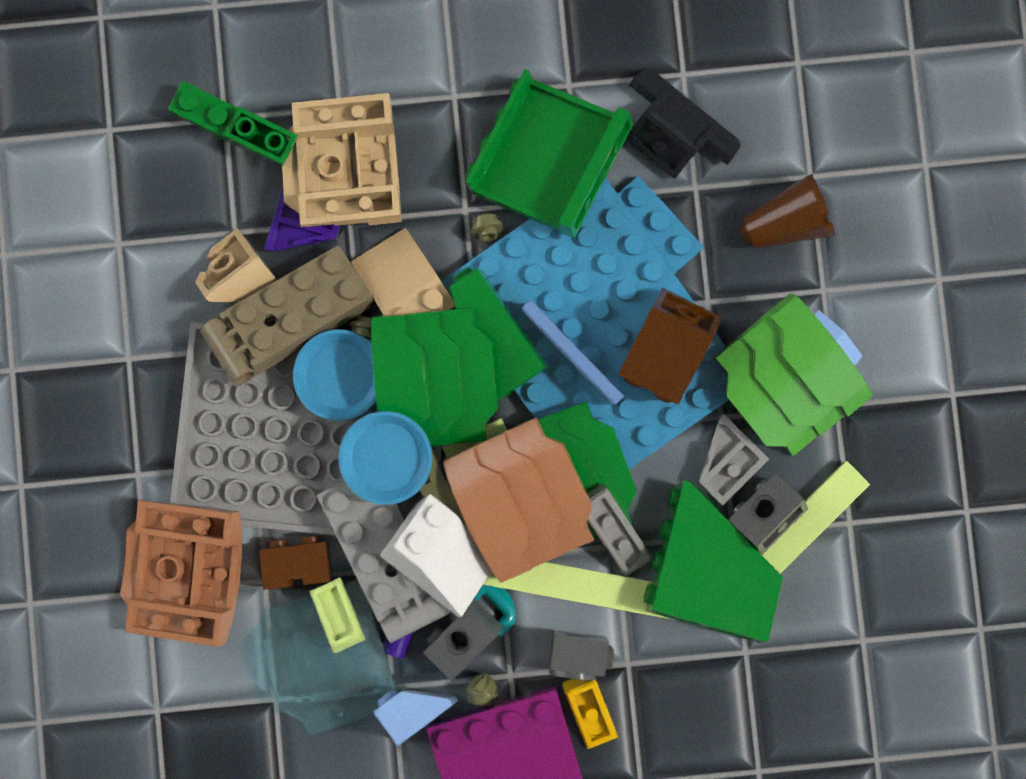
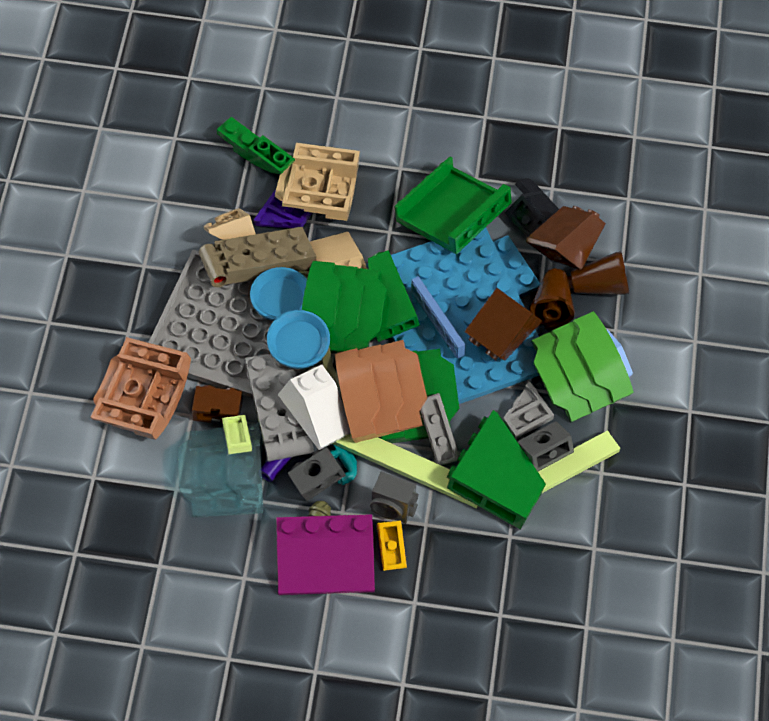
camera: 10 degrees right, 25 degrees down
(410, 711) = (271, 501): light blue slope -> none
(486, 227) = (400, 241): olive plate -> none
(729, 271) = (553, 300): none -> reddish brown cone
(731, 170) = (568, 236): none -> reddish brown slope

